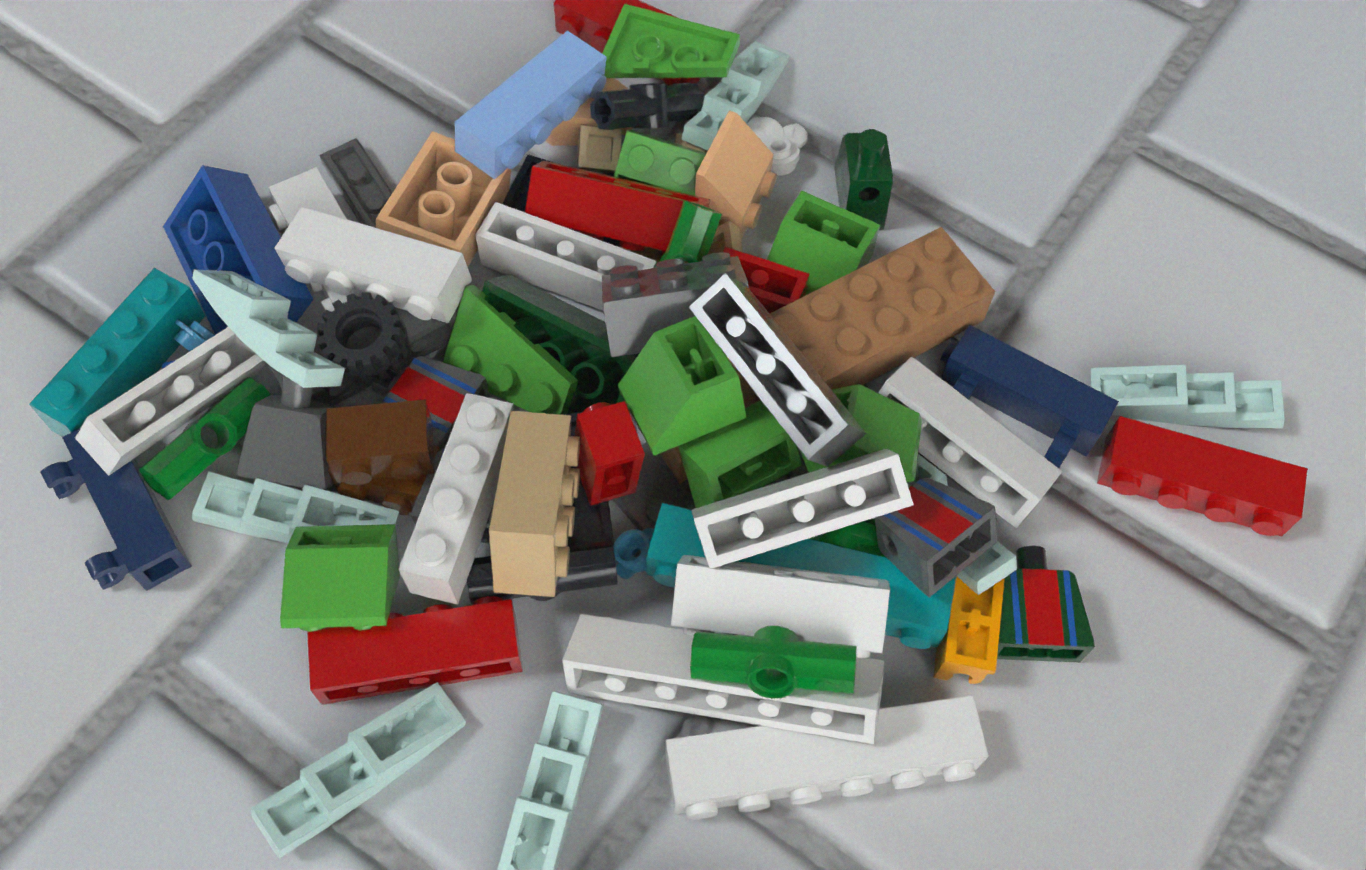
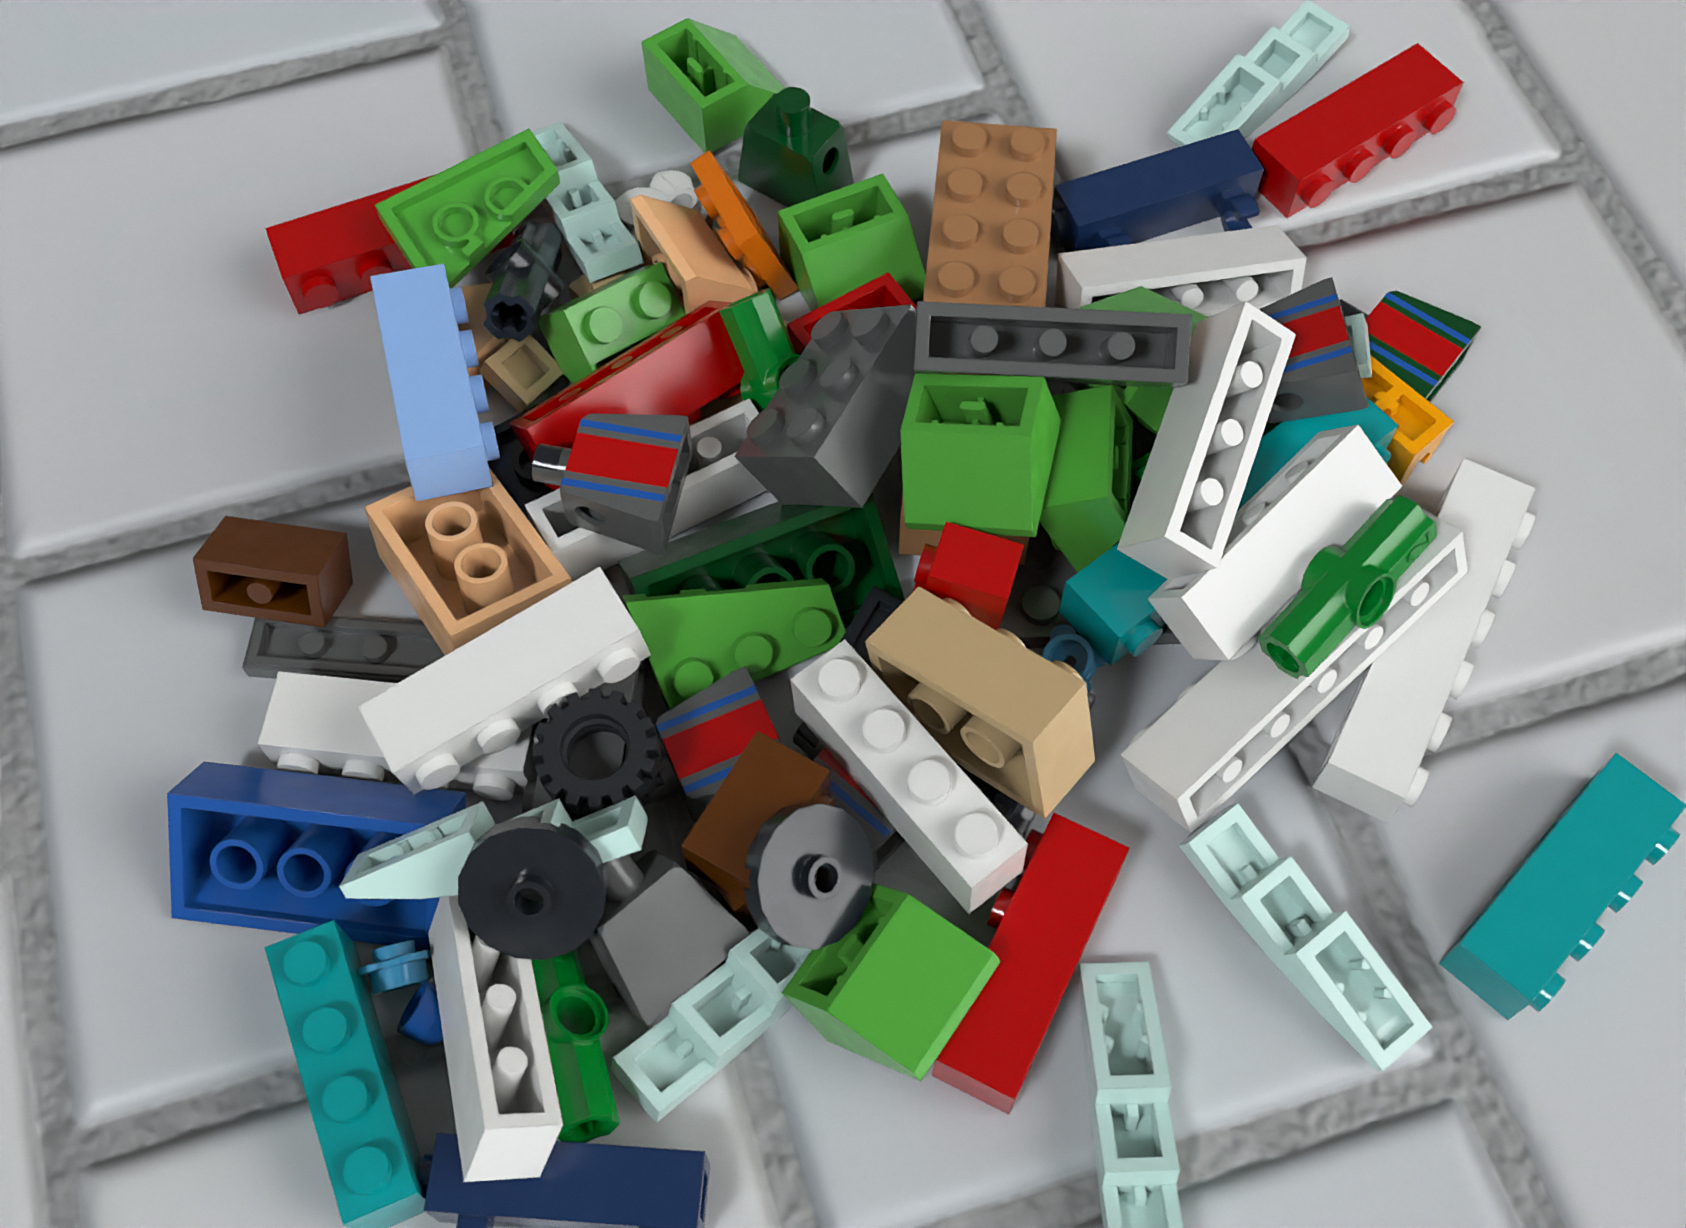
camera: 50 degrees left, 0 degrees up
(248, 354) = (541, 858): none -> black plate
(363, 462) = (783, 871): none -> plate
(379, 126) = (273, 571): none -> reddish brown brick
(542, 230) = (621, 475): none -> dark grey torso
(780, 178) = (740, 227): none -> orange plate
(885, 98) = (706, 81): none -> bright green slope

